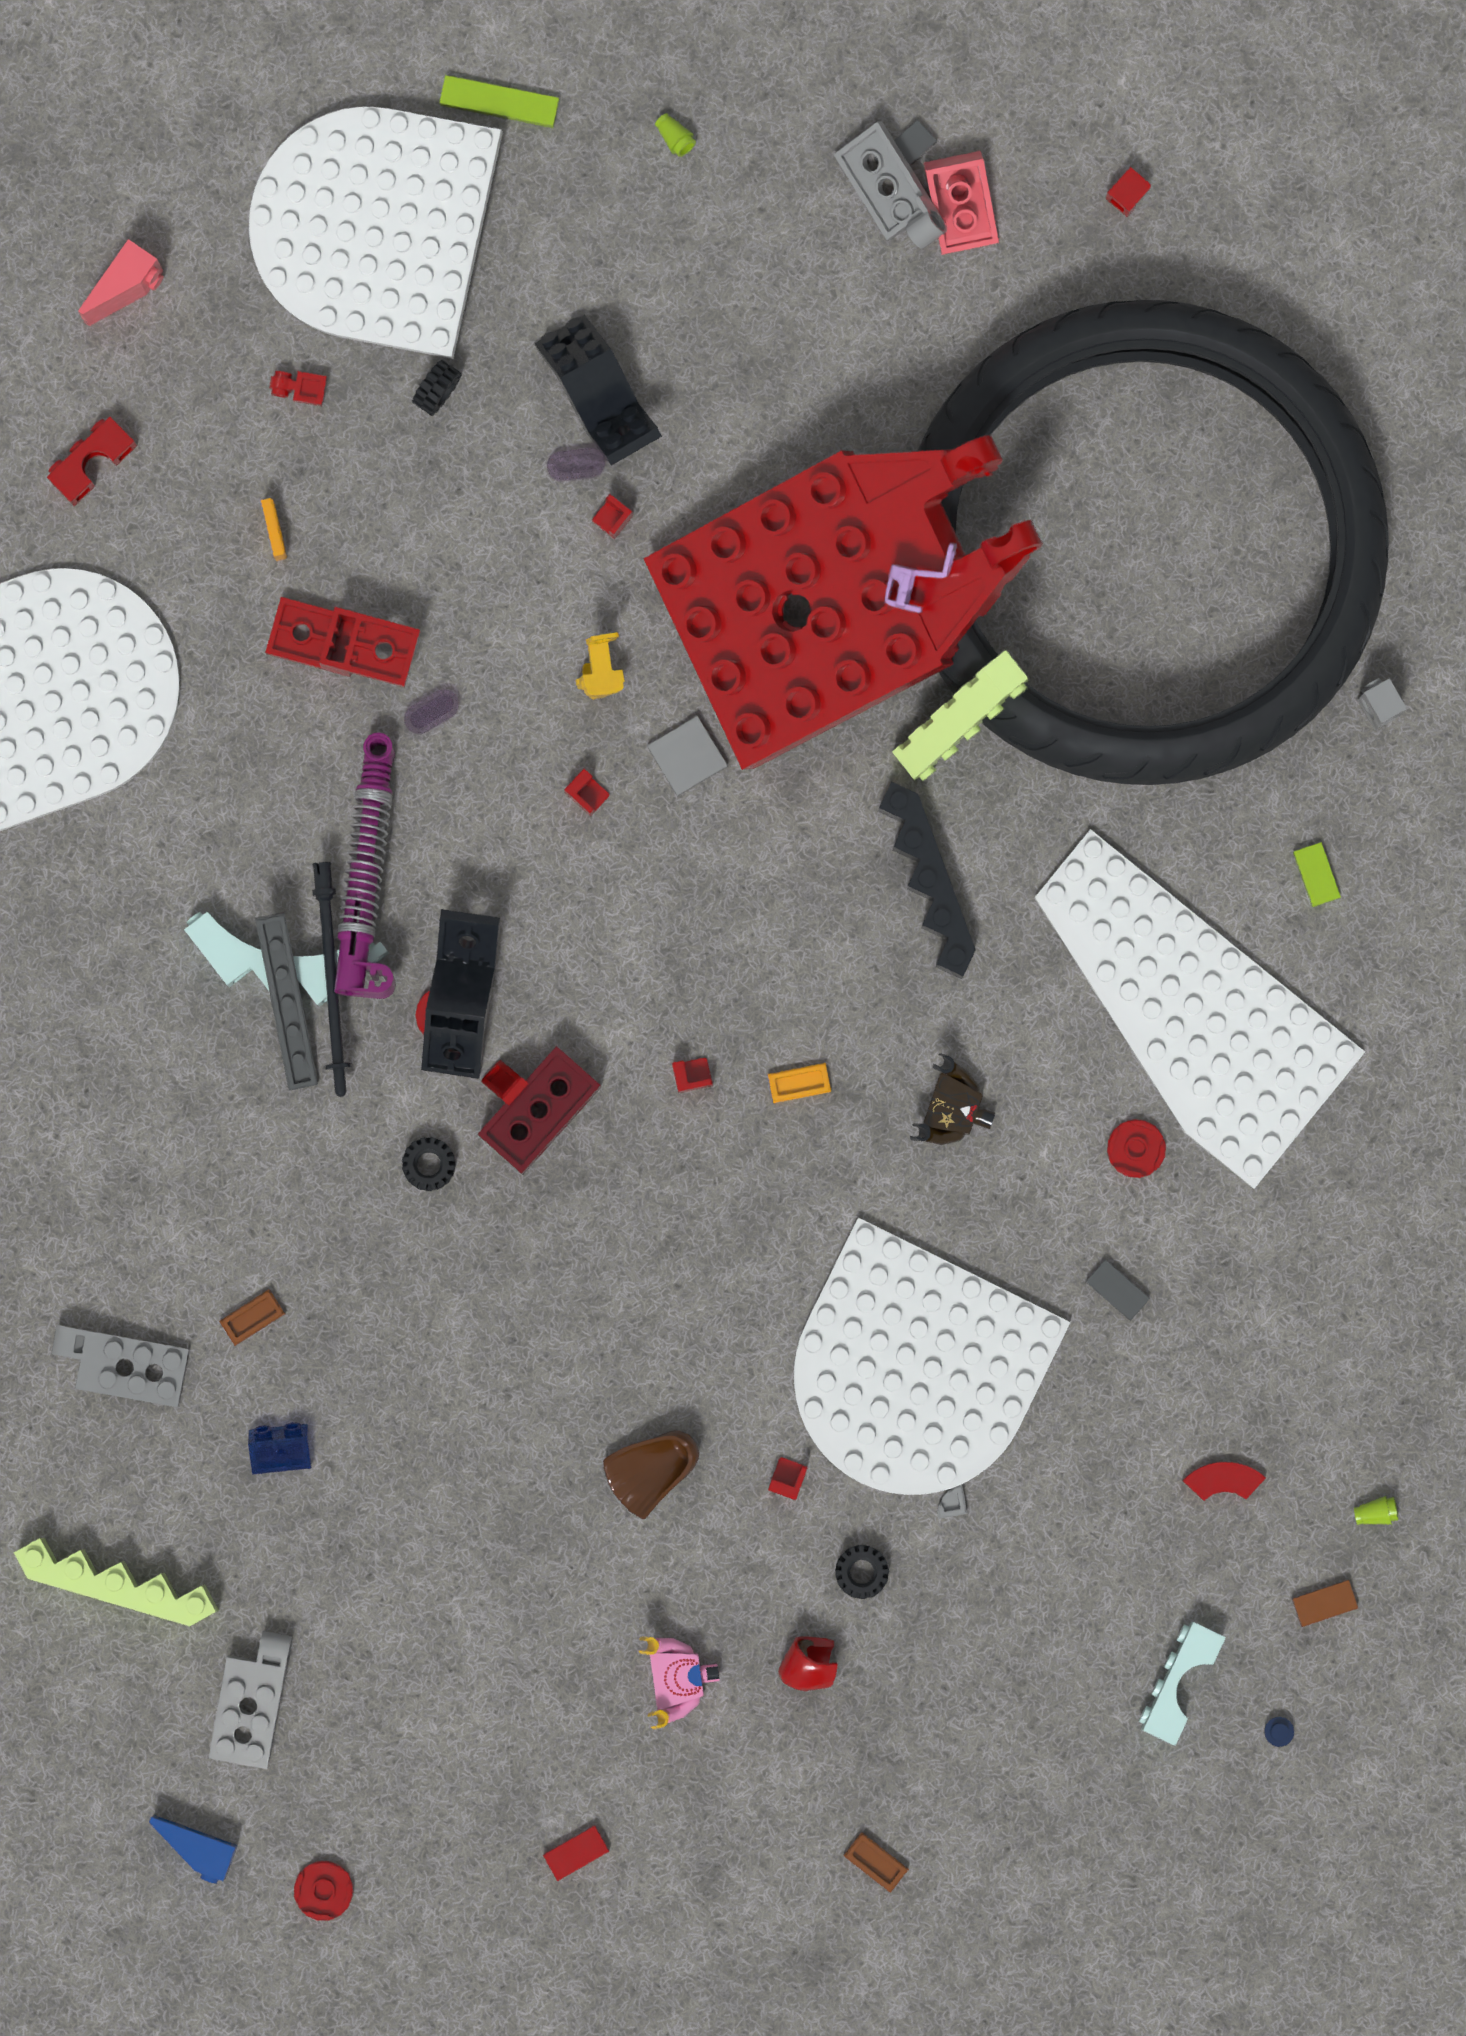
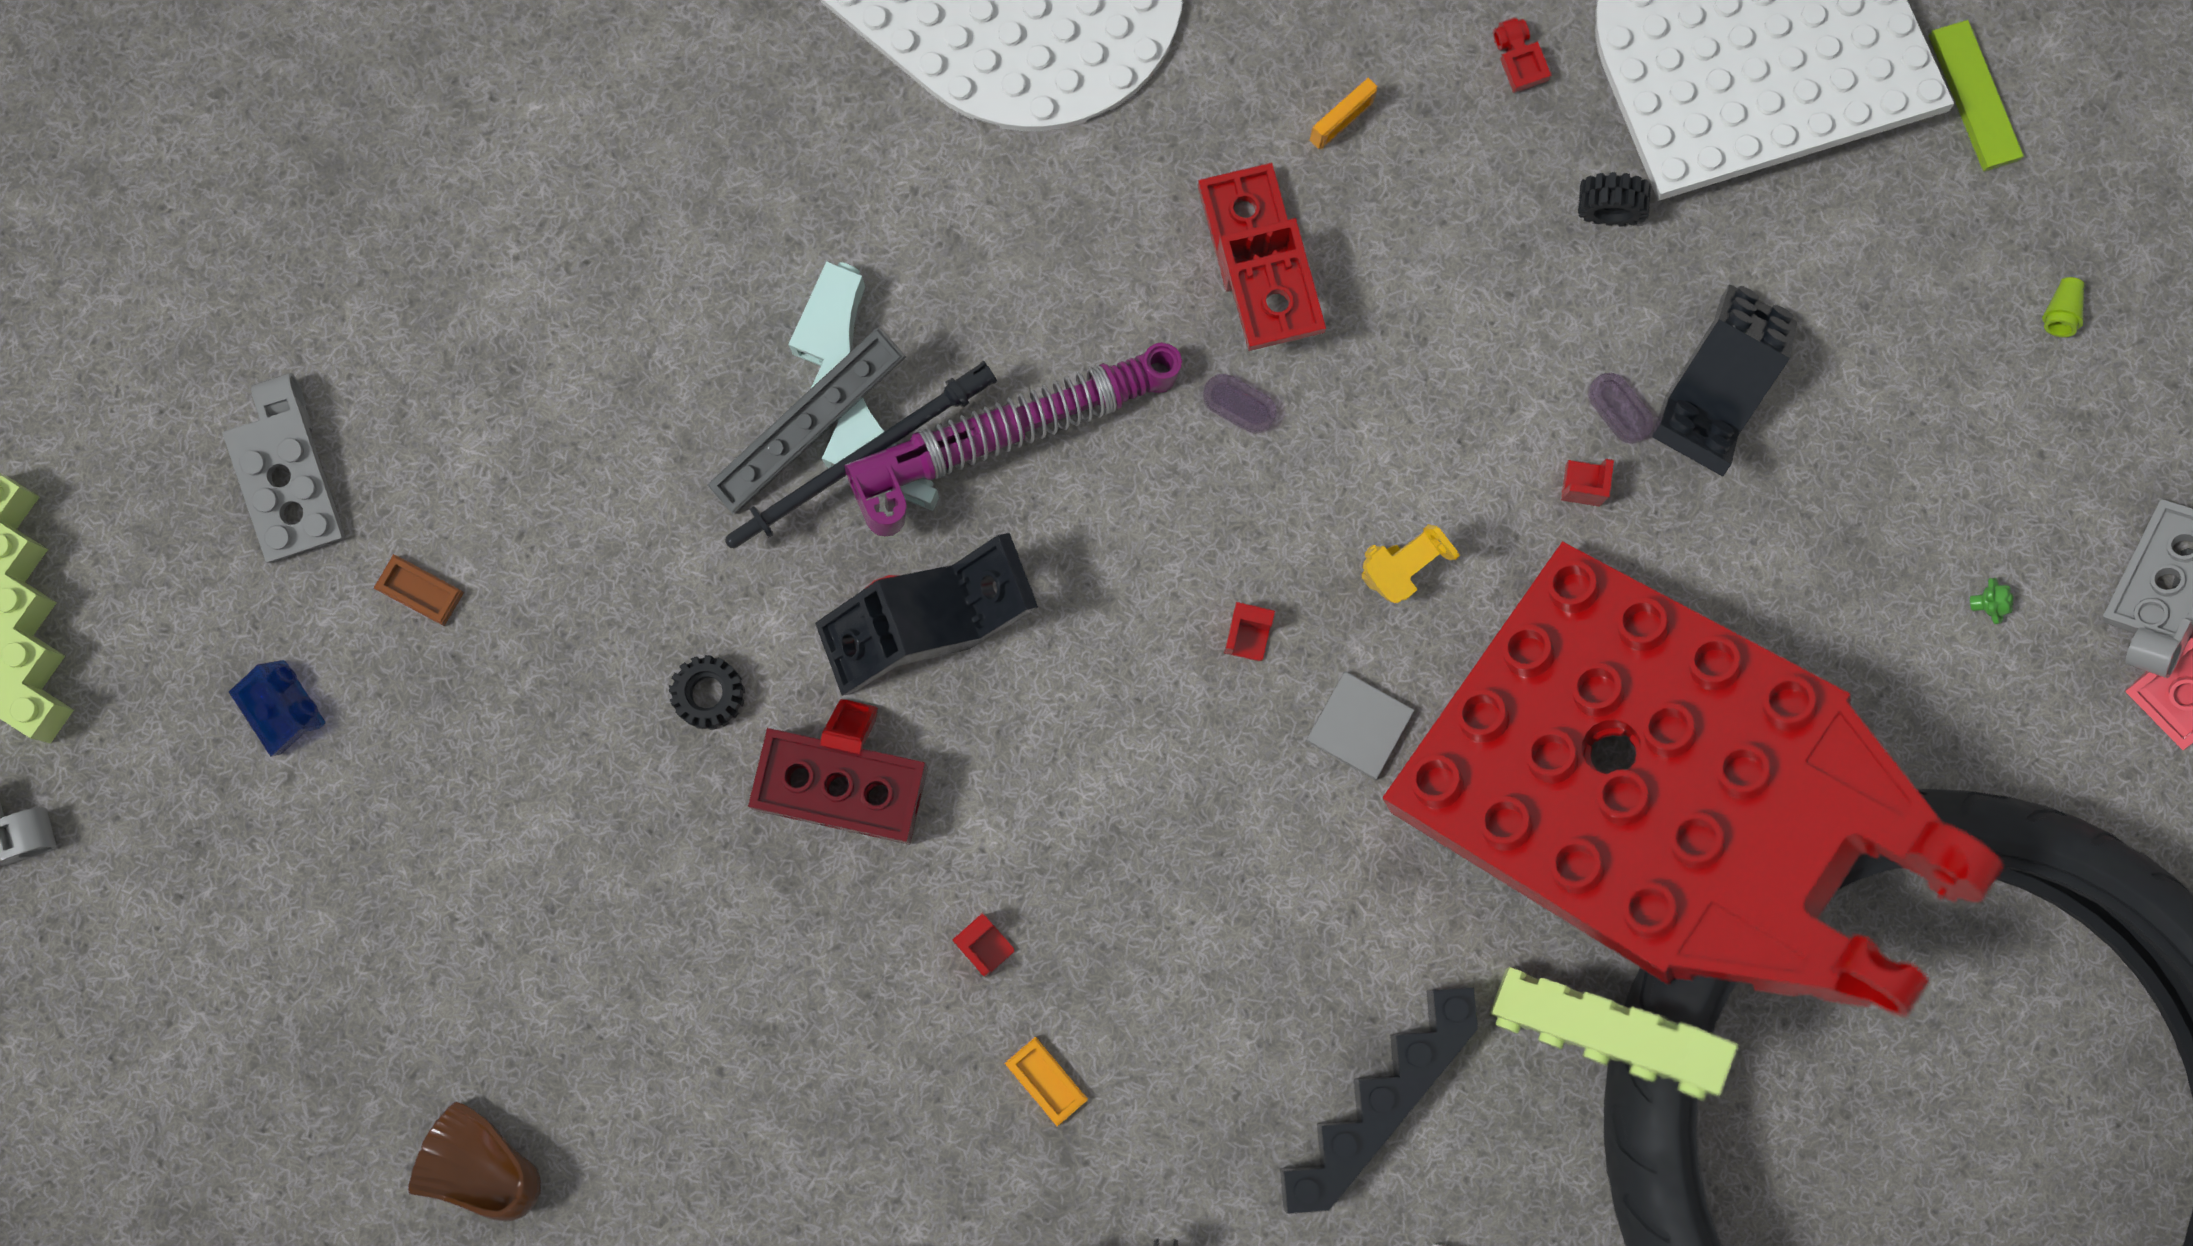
camera: 60 degrees right, 5 degrees down
(838, 302) = (1995, 601): none -> bright green plant
(906, 579) = (1751, 862): lavender piece -> none

